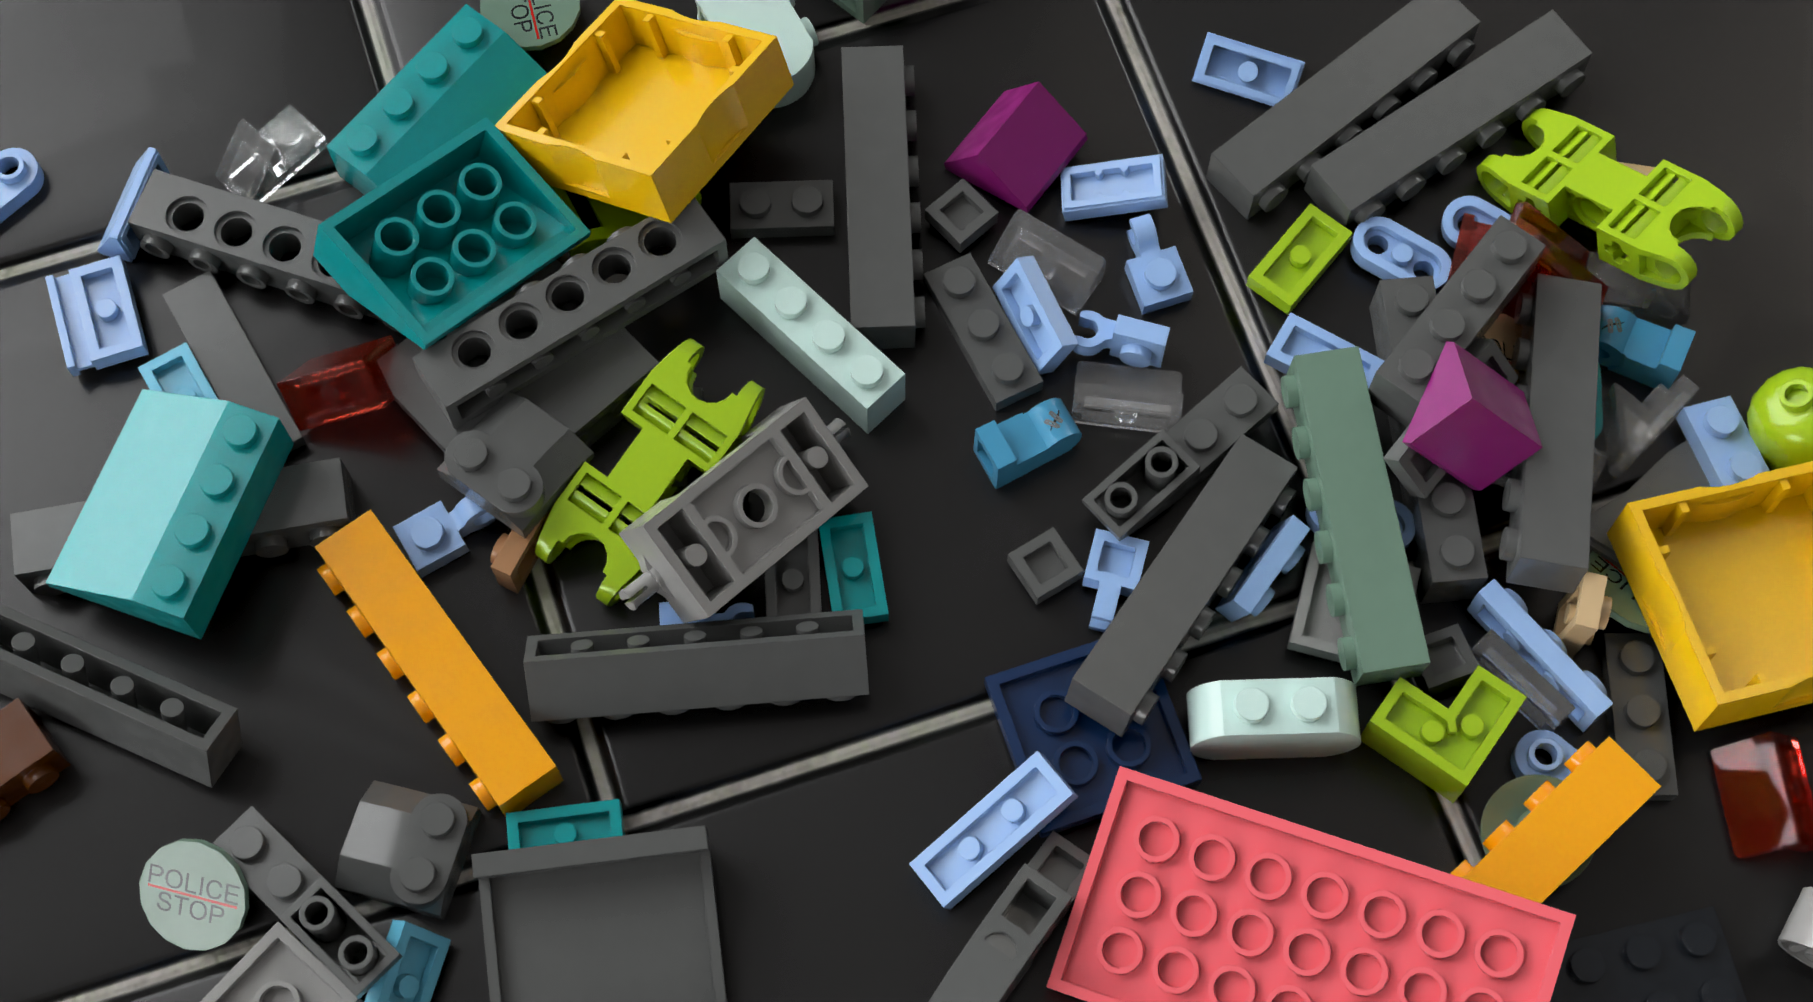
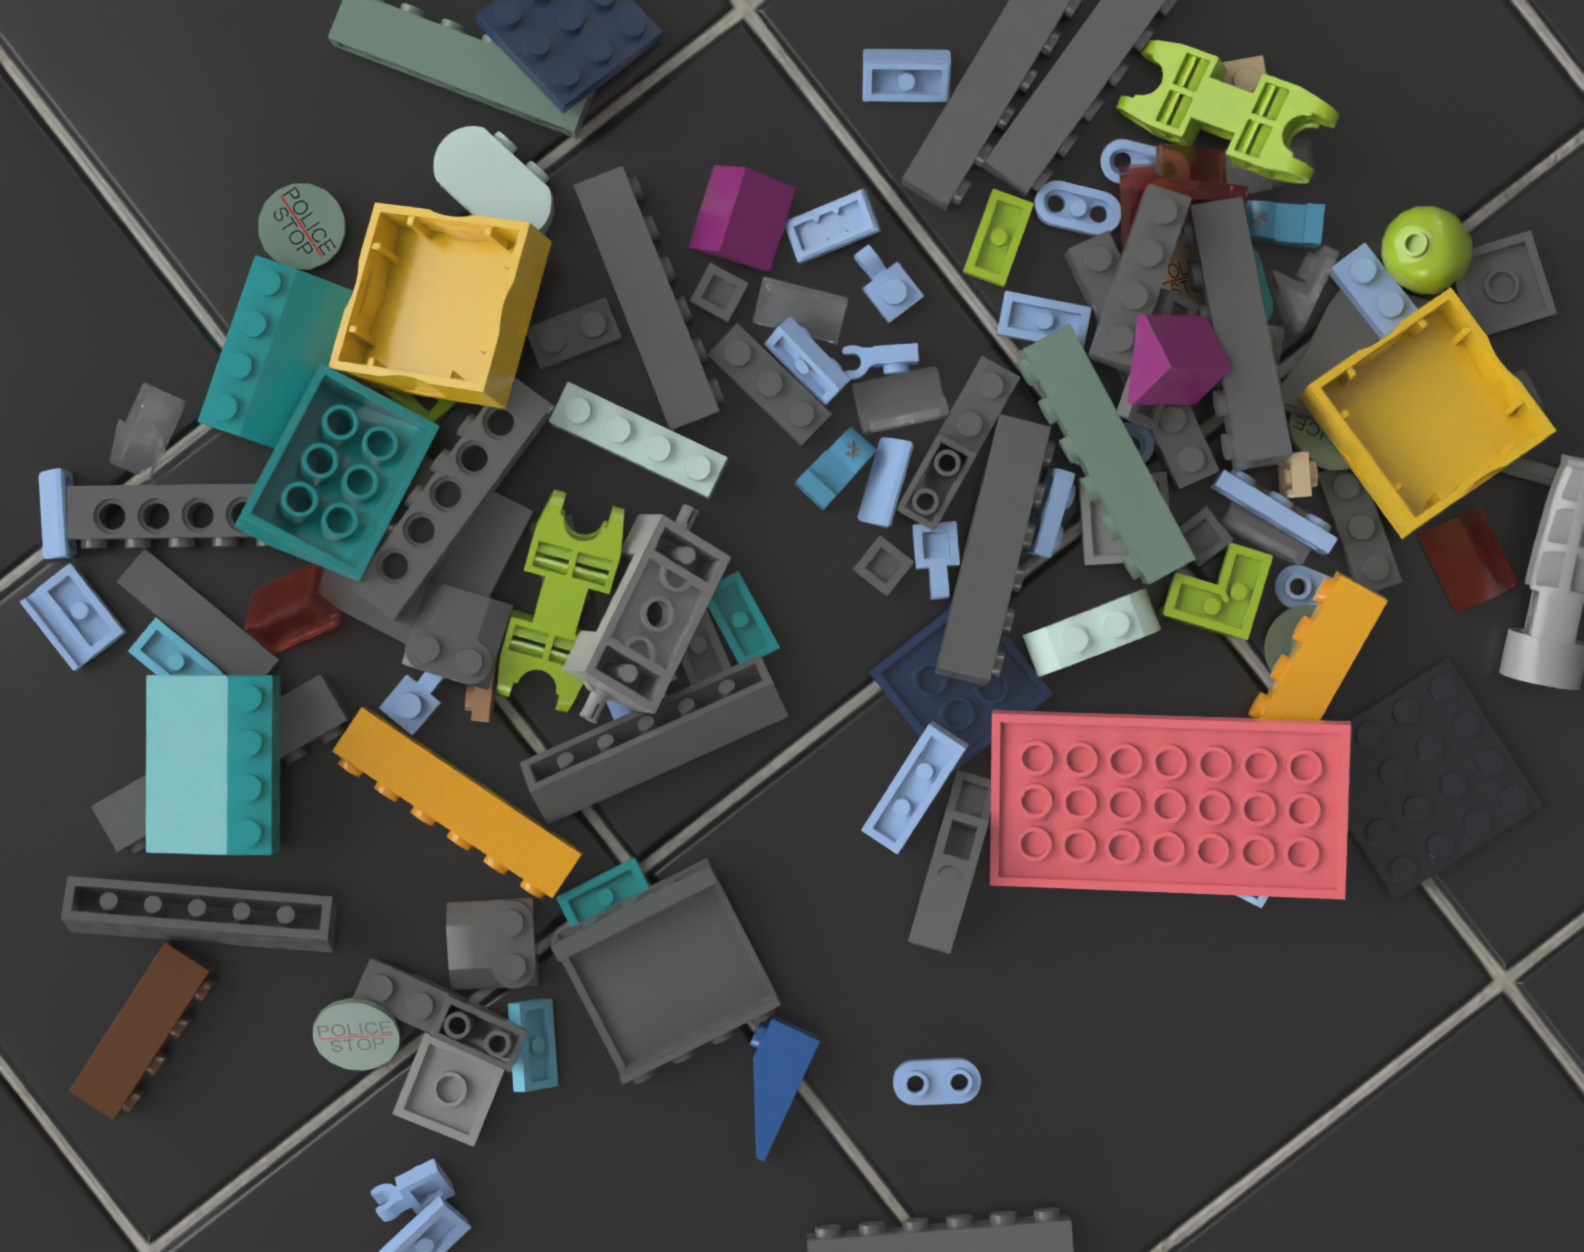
camera: 20 degrees left, 20 degrees up
(1080, 475) = (885, 482): none -> light blue slope

